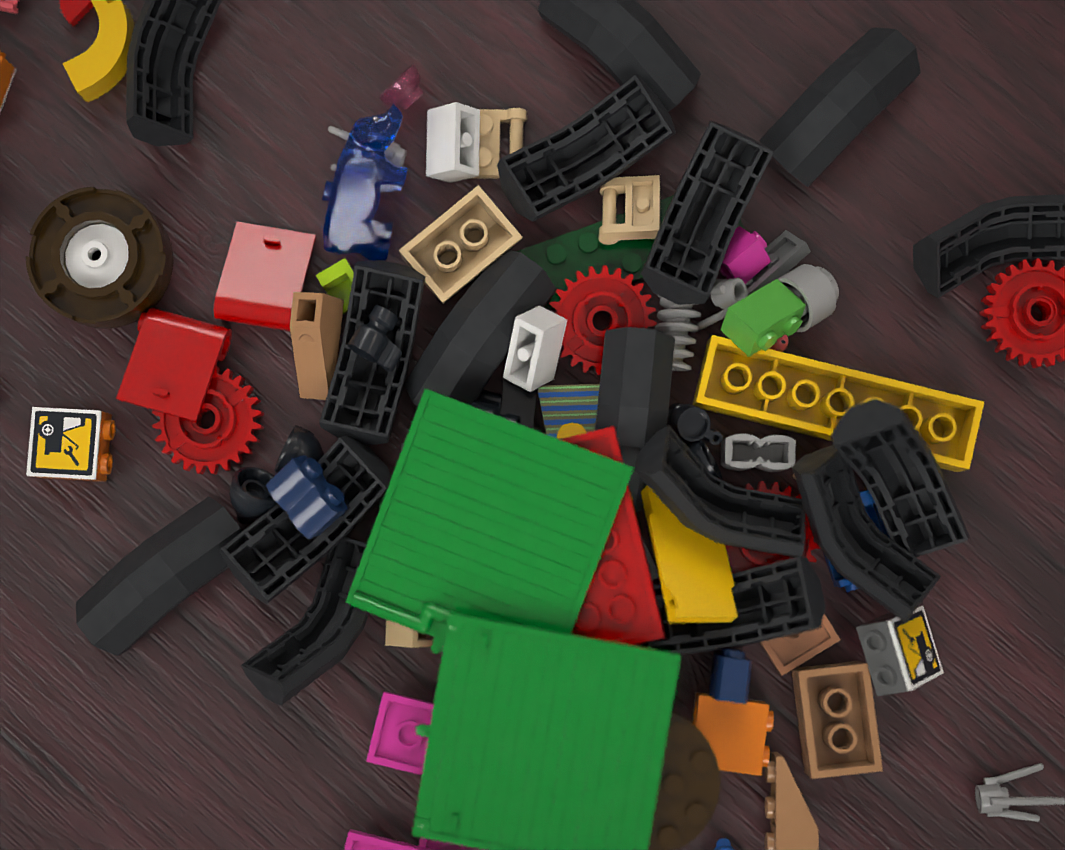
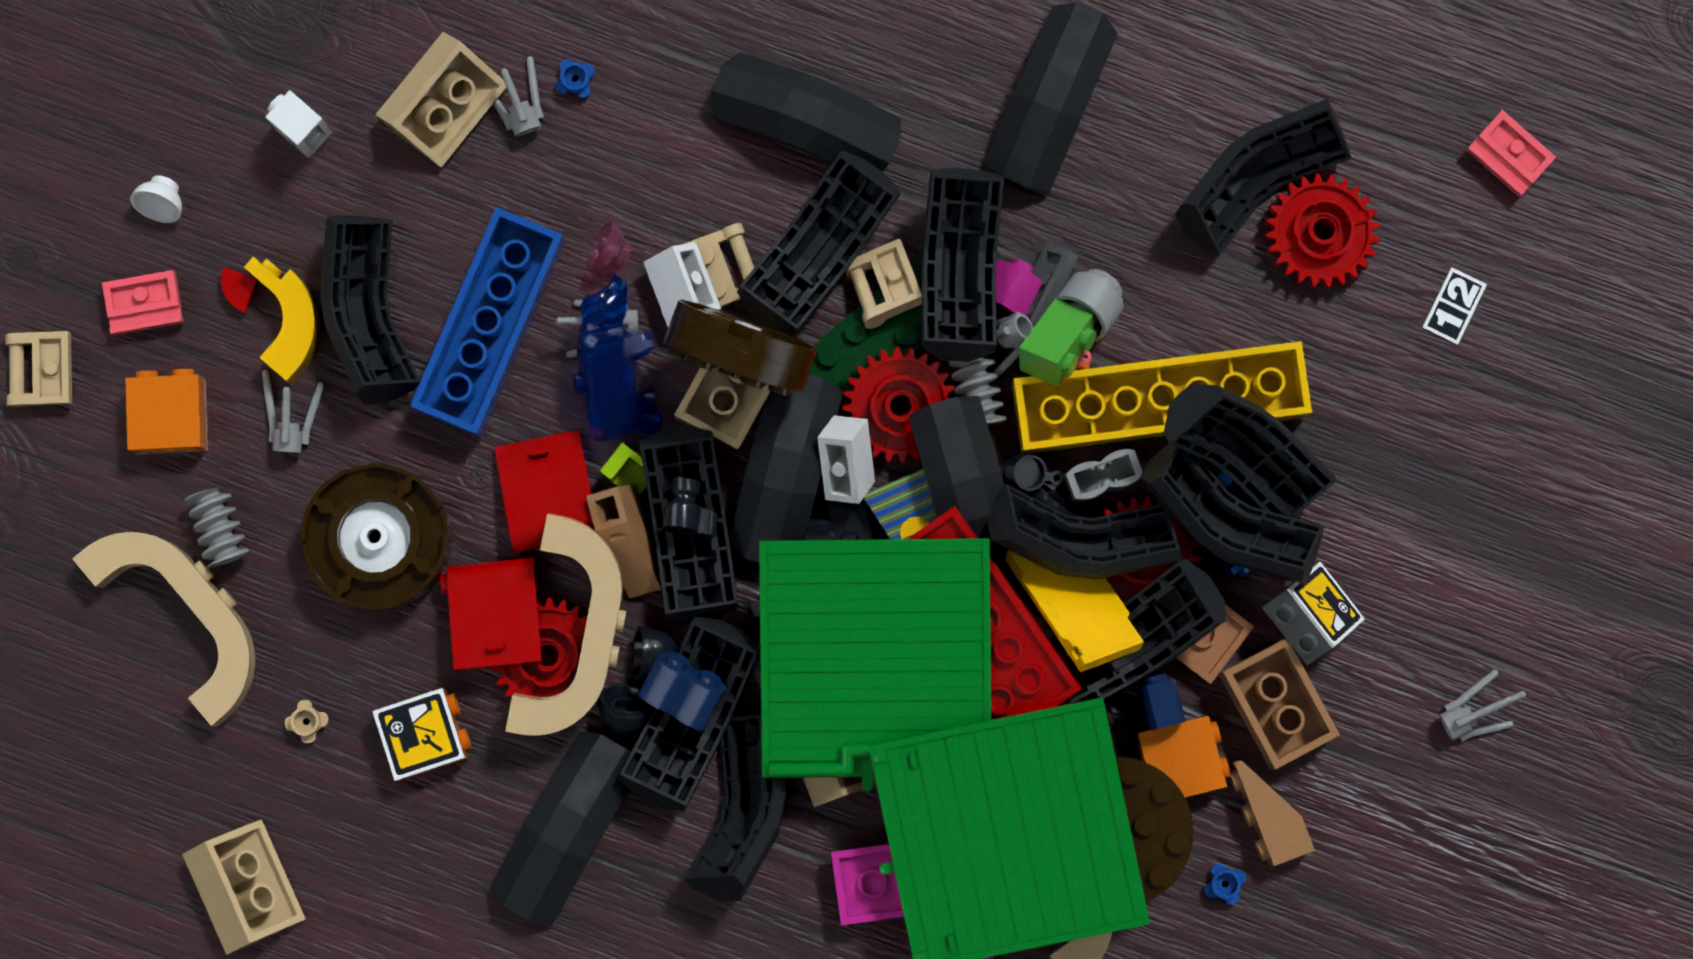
camera: 30 degrees left, 0 degrees up
(62, 142) = (287, 435): none -> light grey plant
(263, 406) = (551, 714): none -> tan arch
(272, 109) = (488, 322): none -> blue brick
(474, 207) = (739, 348): none -> dark brown piece

